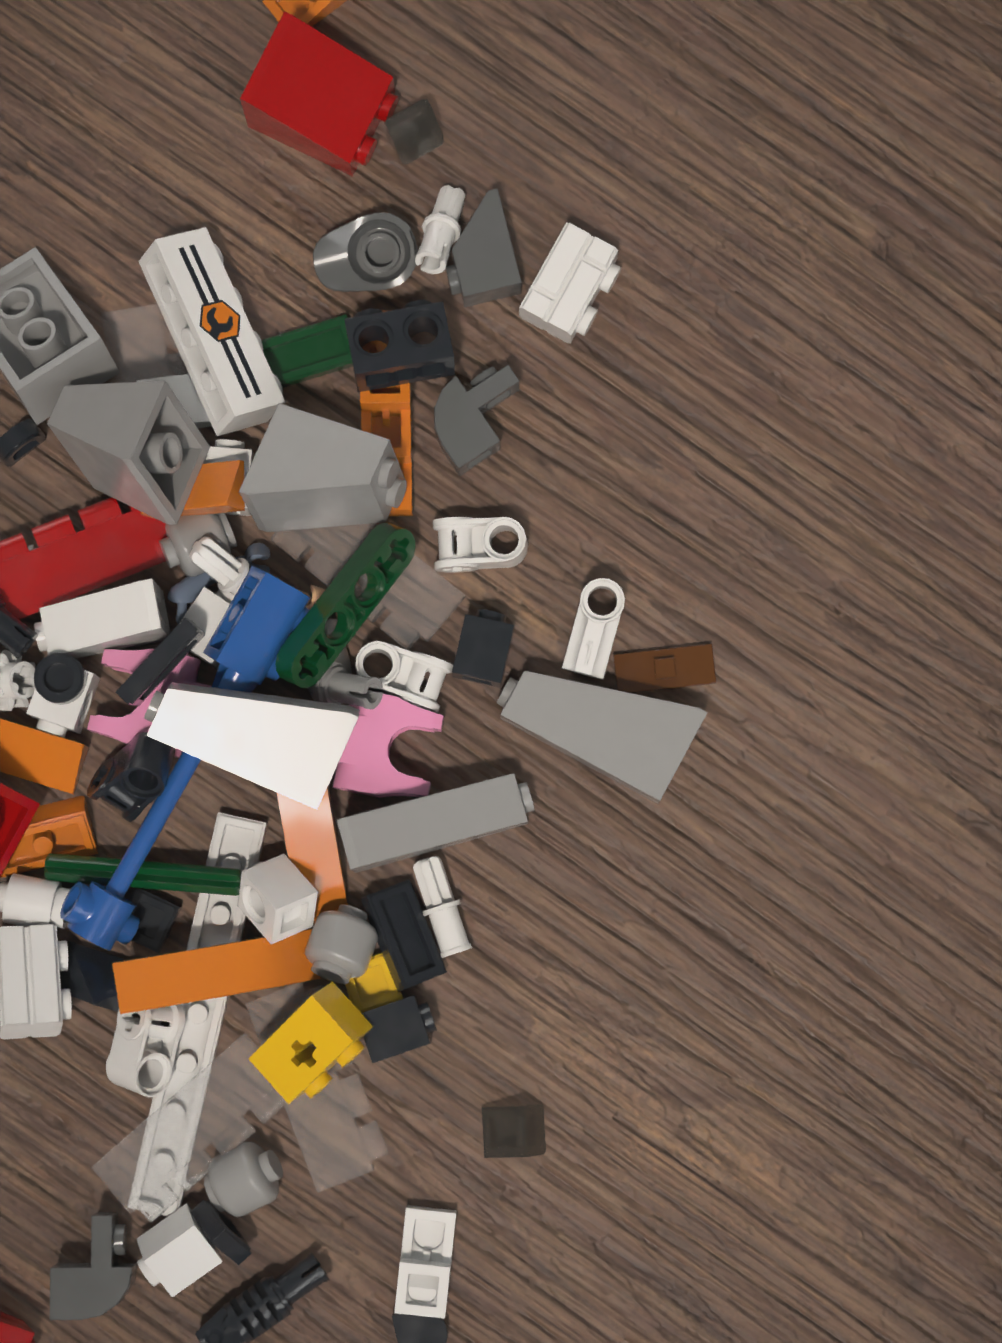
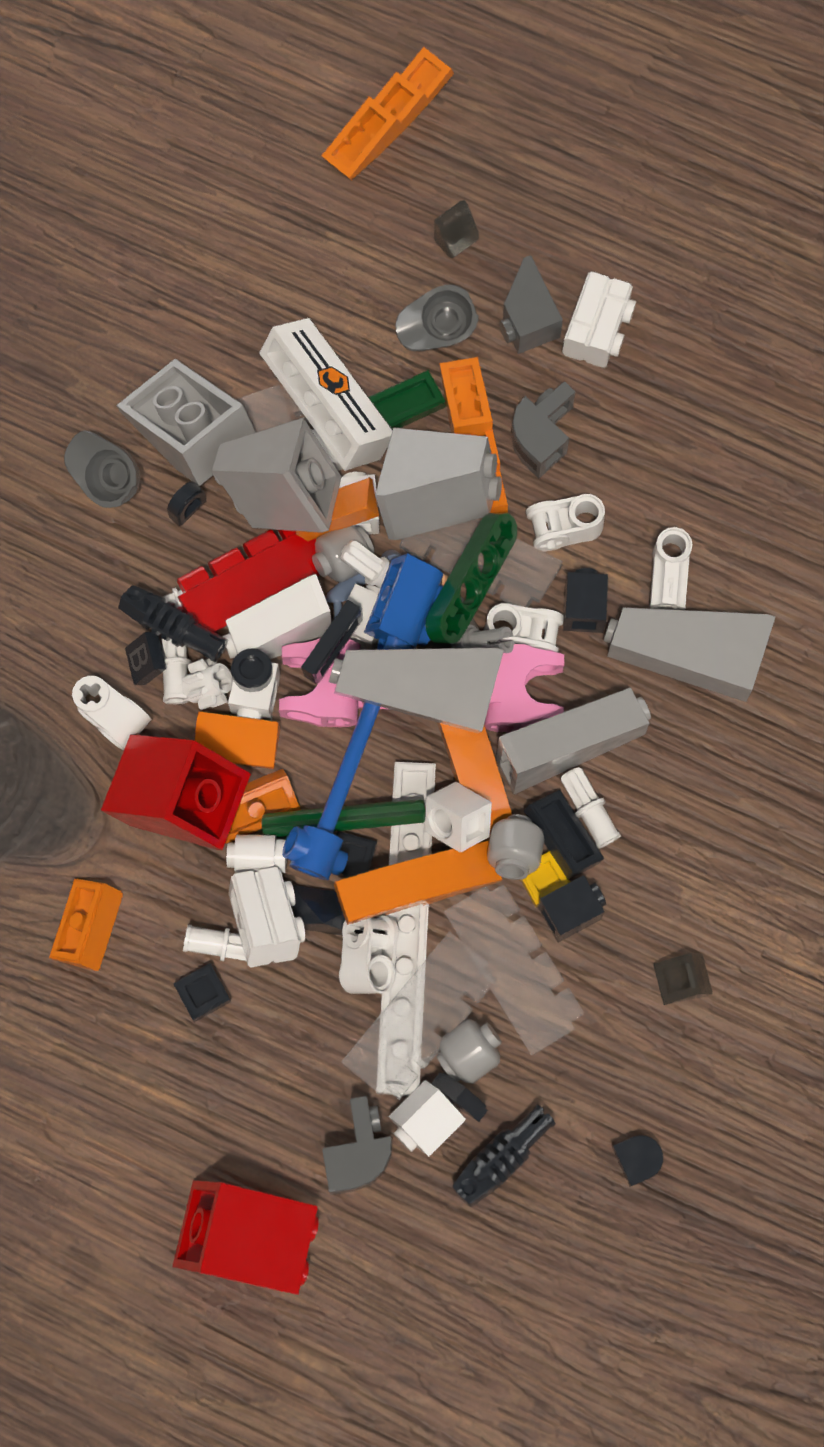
camera: 10 degrees left, 10 degrees down
(133, 776) = (320, 744): black piece -> none
(318, 96) = (378, 212): red slope -> none
(322, 1020) = (488, 938): yellow brick -> none
(402, 359) = (480, 384): black brick -> none
(425, 1261) = (632, 1096): white slope -> none
(441, 230) = (491, 295): white axle -> none
(665, 669) = (732, 595): reddish brown piece -> none

